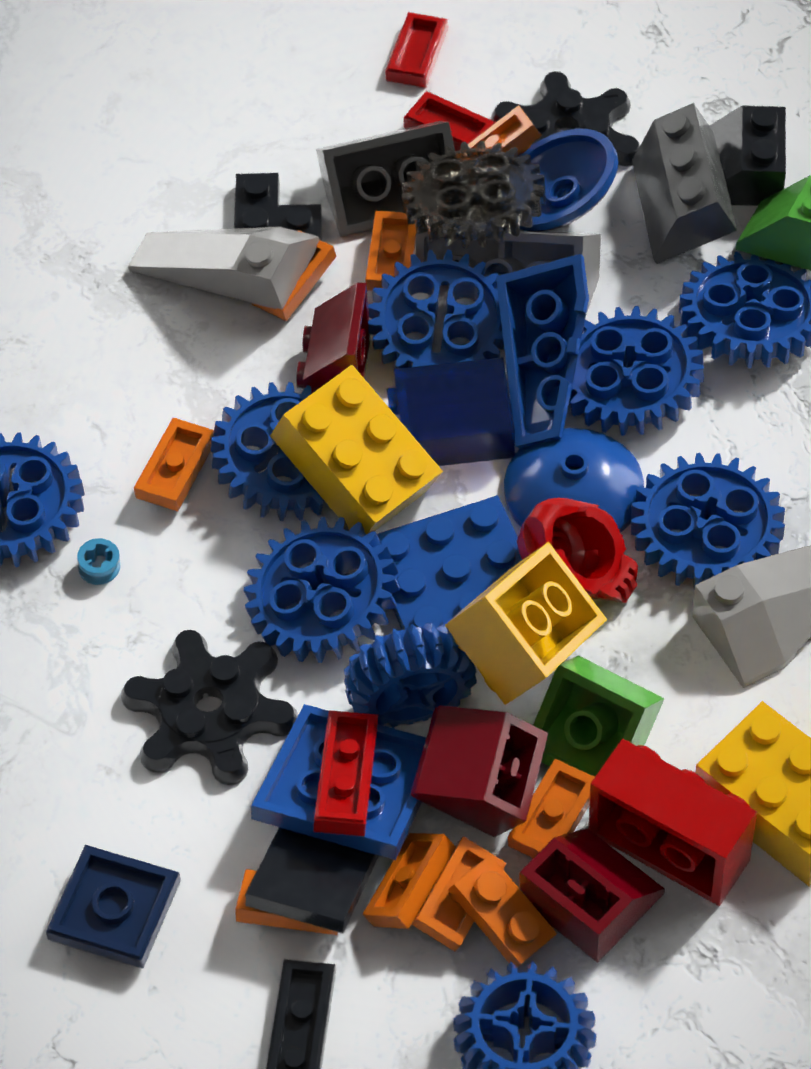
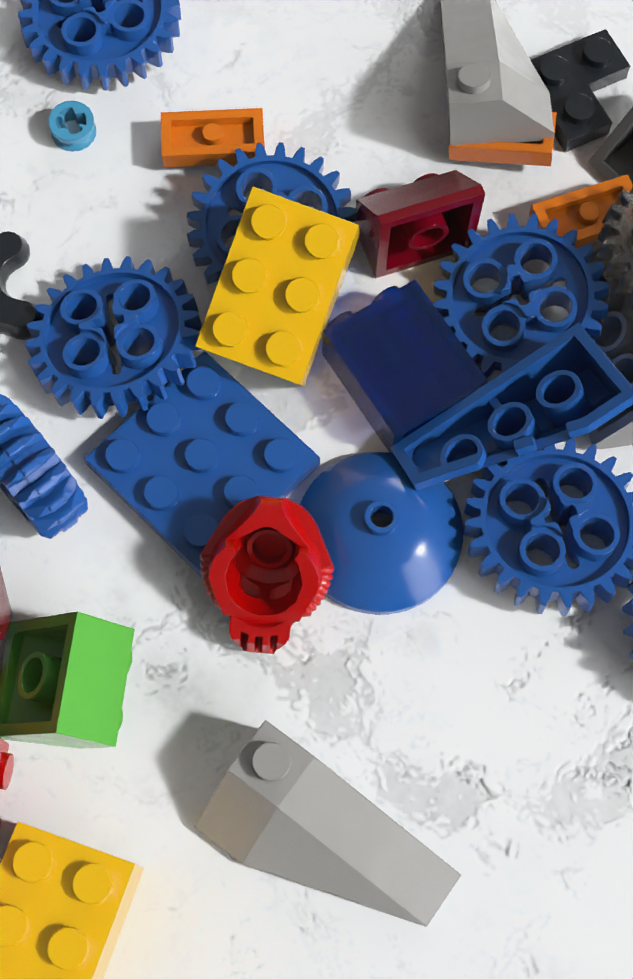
camera: 60 degrees right, 15 degrees up
(526, 623) = (113, 555): yellow brick -> none
(705, 518) = (441, 697): blue gear -> none

